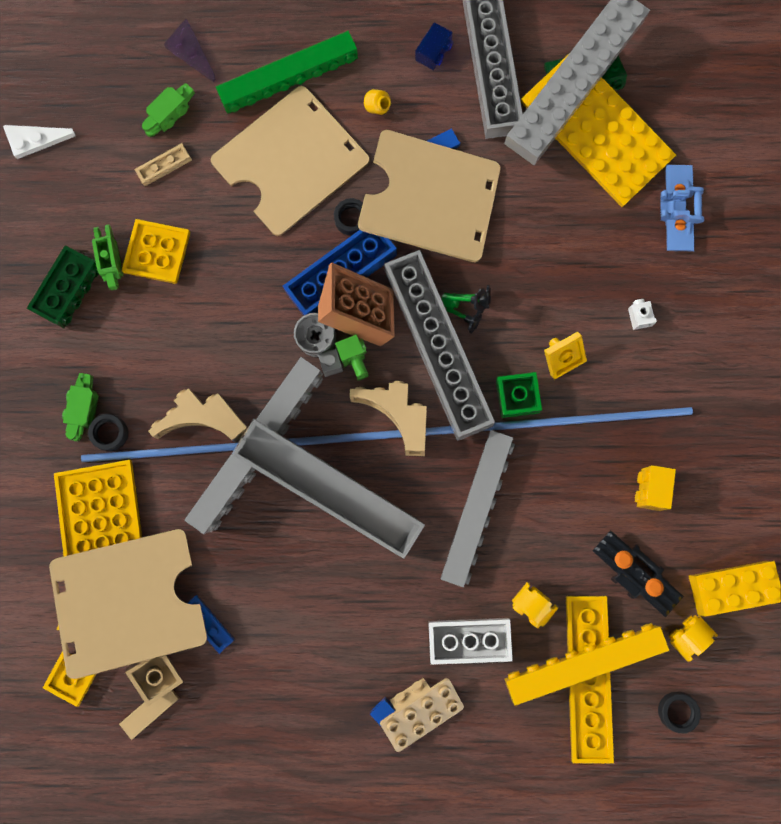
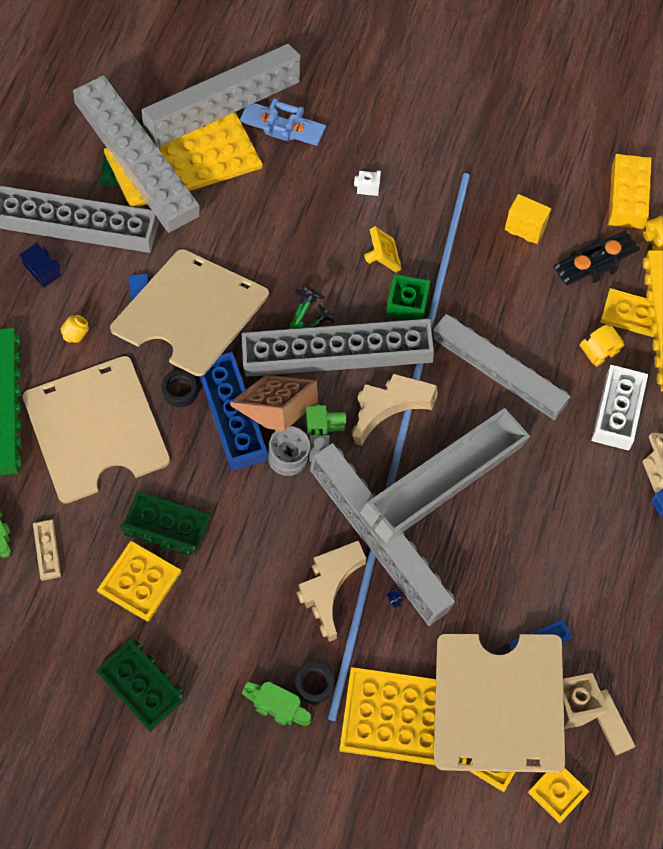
camera: 80 degrees left, 15 degrees down
(107, 257) = (122, 627): bright green hinge -> none
(206, 478) = (395, 598): none -> clear blue plate
(214, 254) = (166, 524): none -> dark green bracket
(681, 134) = (221, 95): none -> light grey brick

